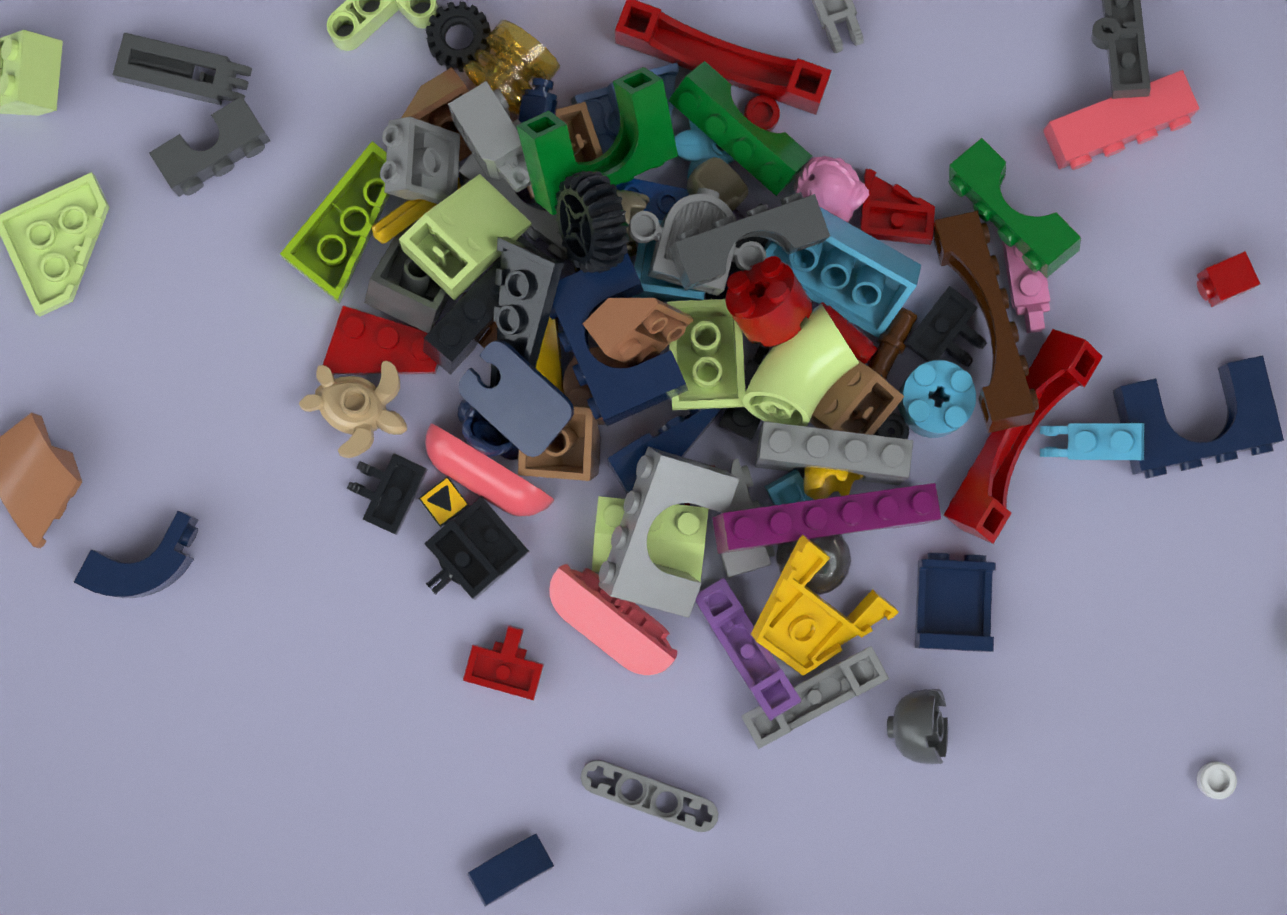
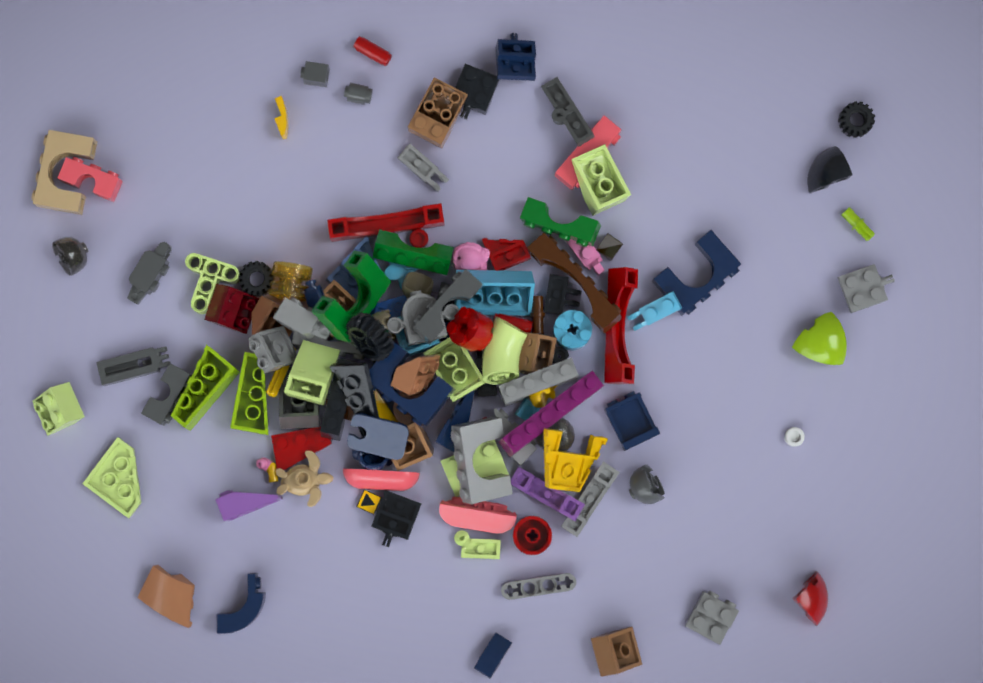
camera: 30 degrees left, 0 degrees up
(222, 387) = (237, 504): none -> medium lavender slope
(274, 168) = (205, 386): none -> lime wedge
(311, 355) = (269, 467): none -> arm
(390, 62) = (231, 308): none -> dark red slope
(394, 493) = (343, 509): black hinge -> none
(504, 667) = (439, 563): red hinge -> none
(582, 675) = (477, 547): none -> yellowish green hinge
(688, 726) = (540, 543): none -> red brick
(1073, 294) = (609, 247): none -> dark brown slope
(1118, 174) = (600, 180): none -> yellowish green slope
(1227, 279) = (676, 202): red brick -> none

